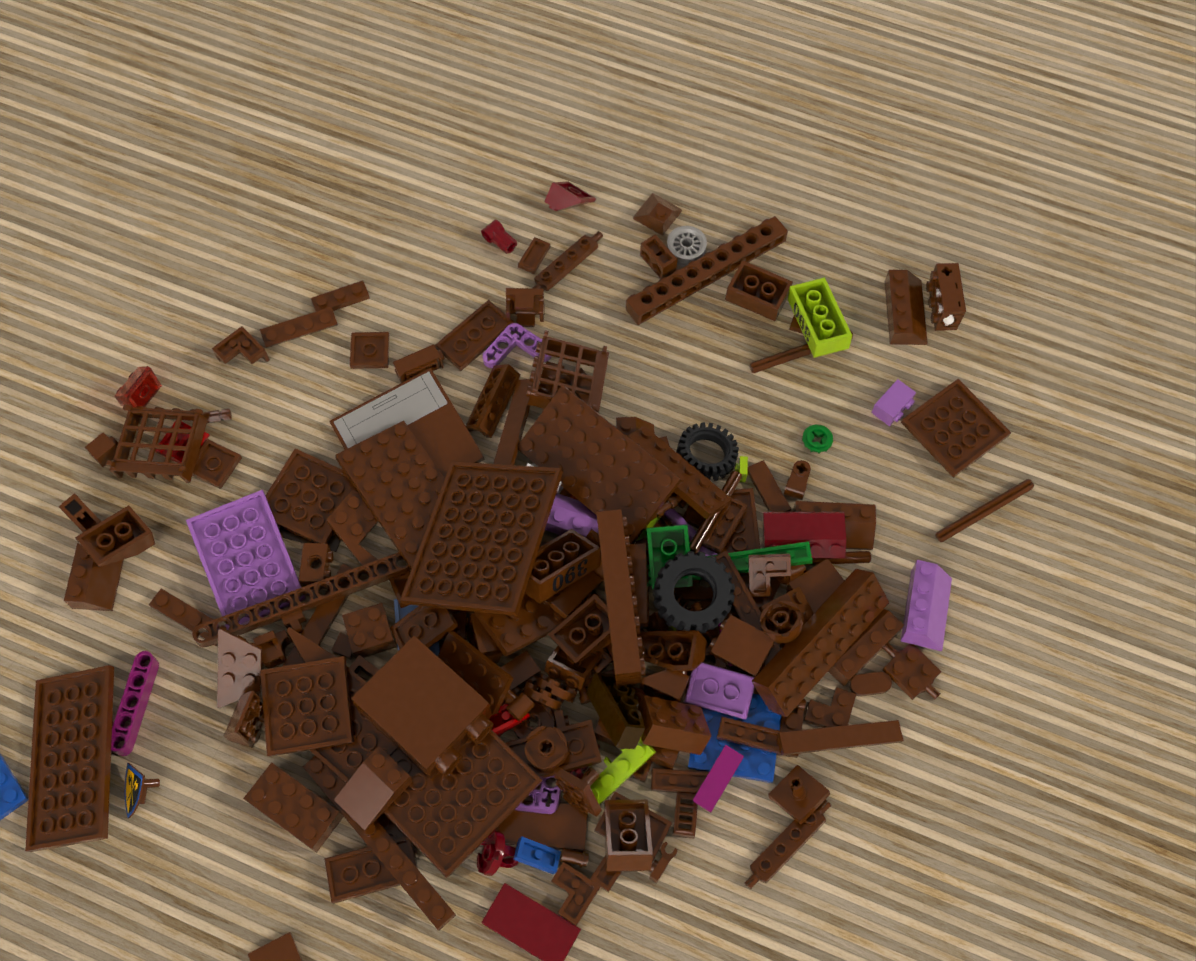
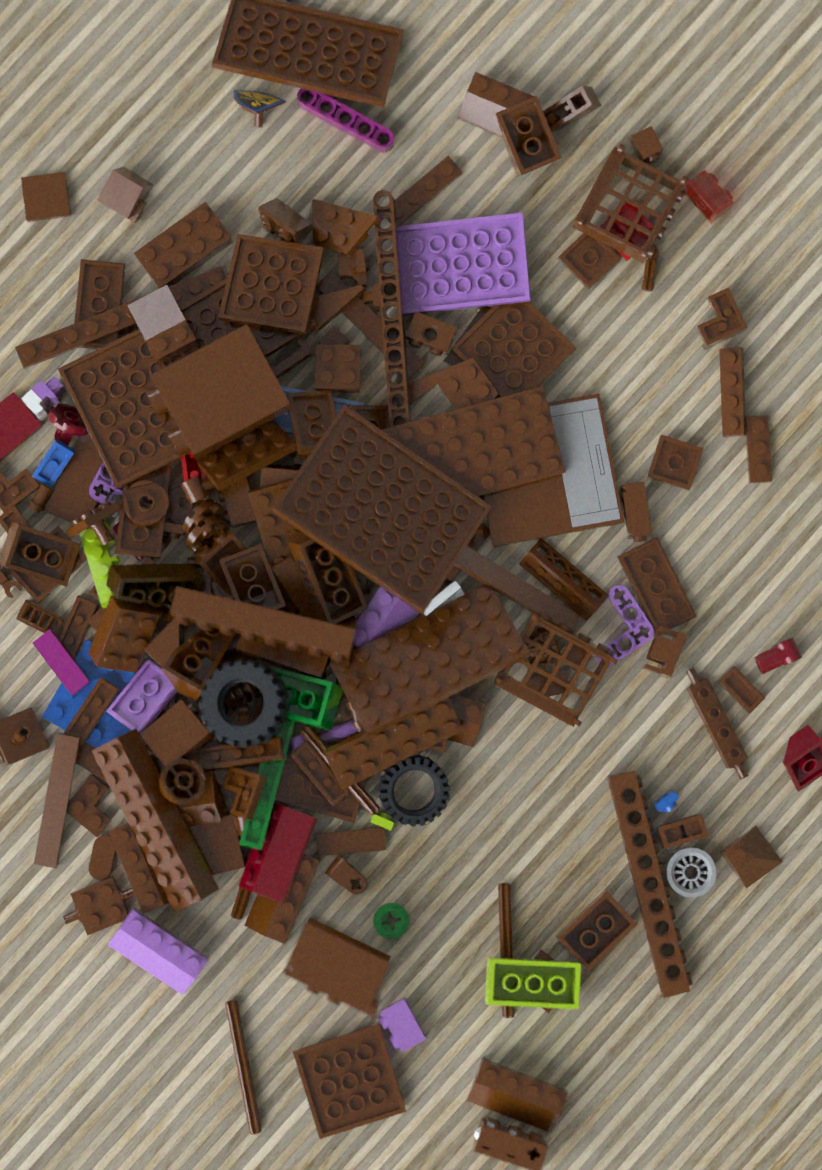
camera: 110 degrees right, 20 degrees up
(255, 883) = (125, 193): none -> plate
(476, 888) = (42, 396): none -> hips
(640, 272) = (666, 802): none -> blue plate
(876, 452) = (338, 966): none -> reddish brown windscreen

